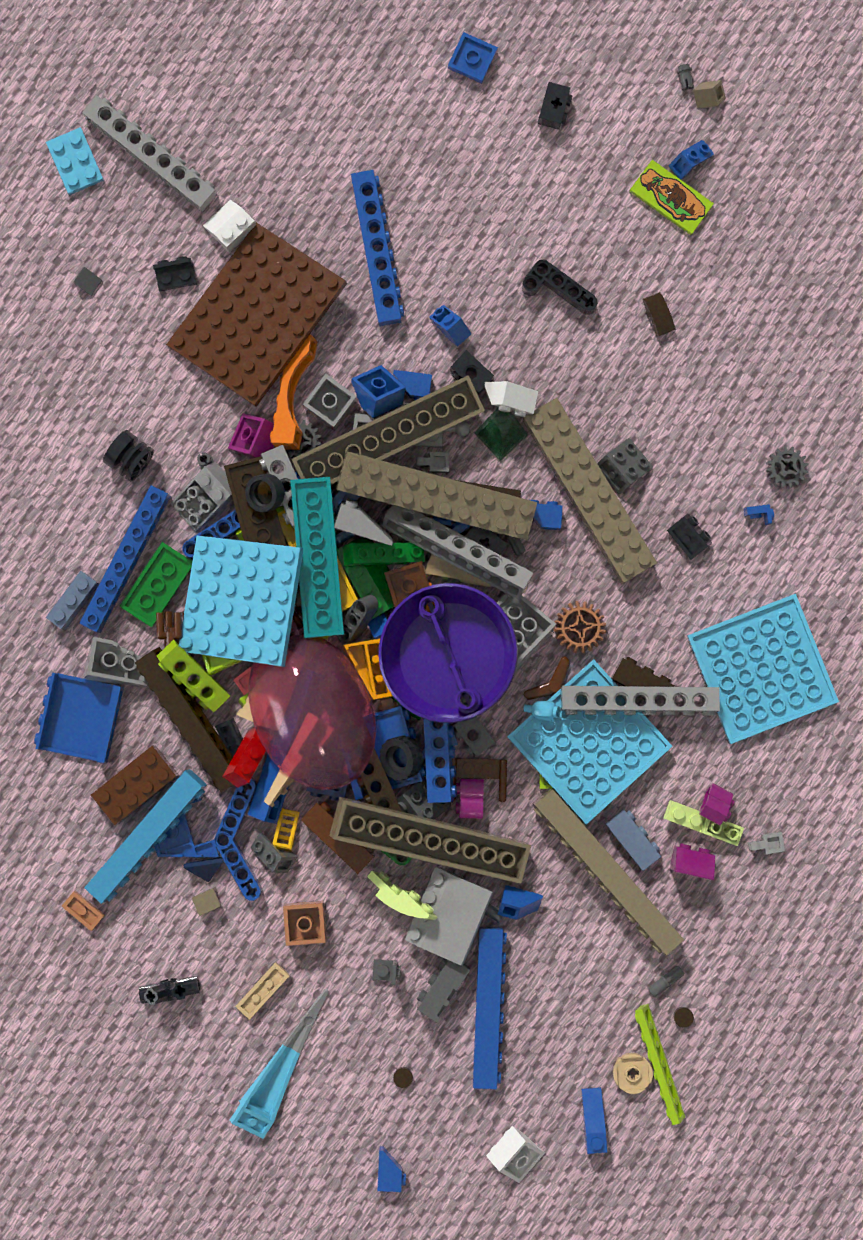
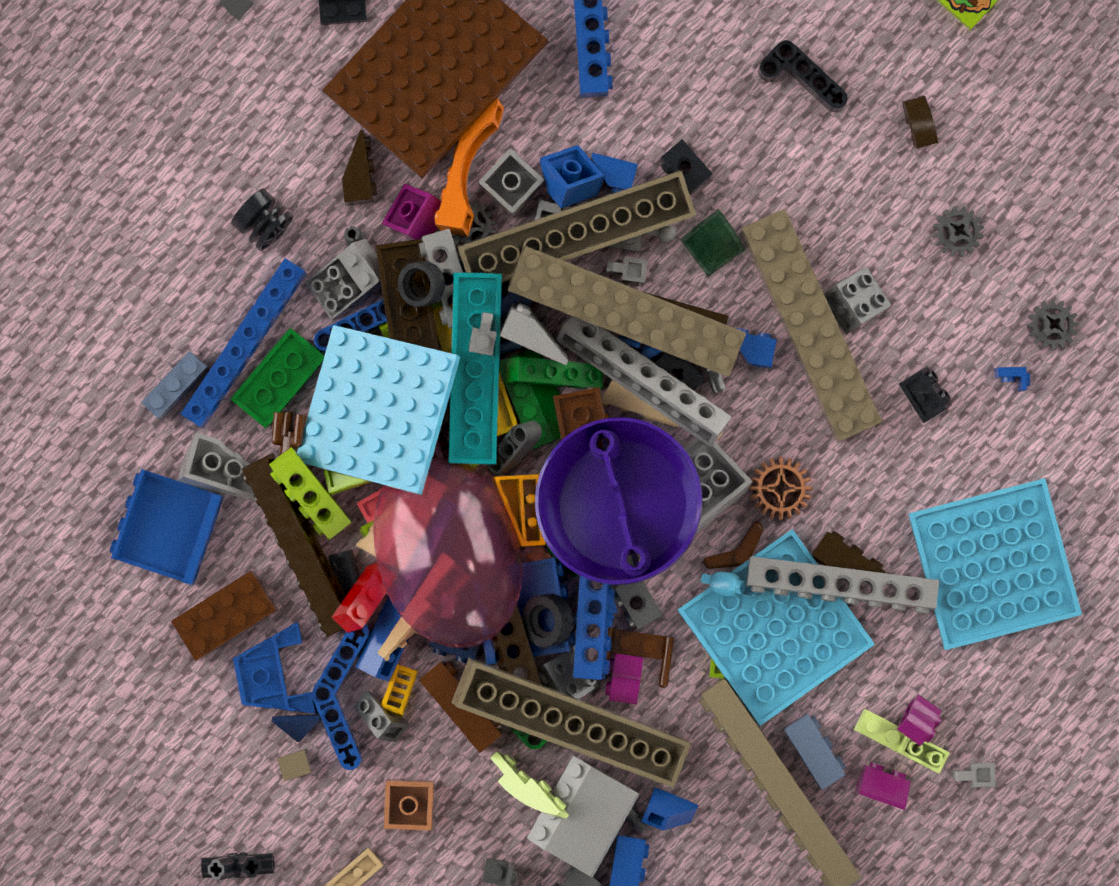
camera: 10 degrees right, 0 degrees up
(83, 910) = (145, 758): nougat plate -> none
(146, 836) = (231, 678): dark azure brick -> none
(202, 411) = (357, 177): none -> dark brown slope
(320, 532) = (483, 339): none -> light grey plate
(376, 626) = (537, 458): blue panel -> none
(450, 325) = (667, 106): blue slope -> none
(512, 397) = (730, 203): white slope -> none
(693, 396) = (950, 226): none -> dark grey gear

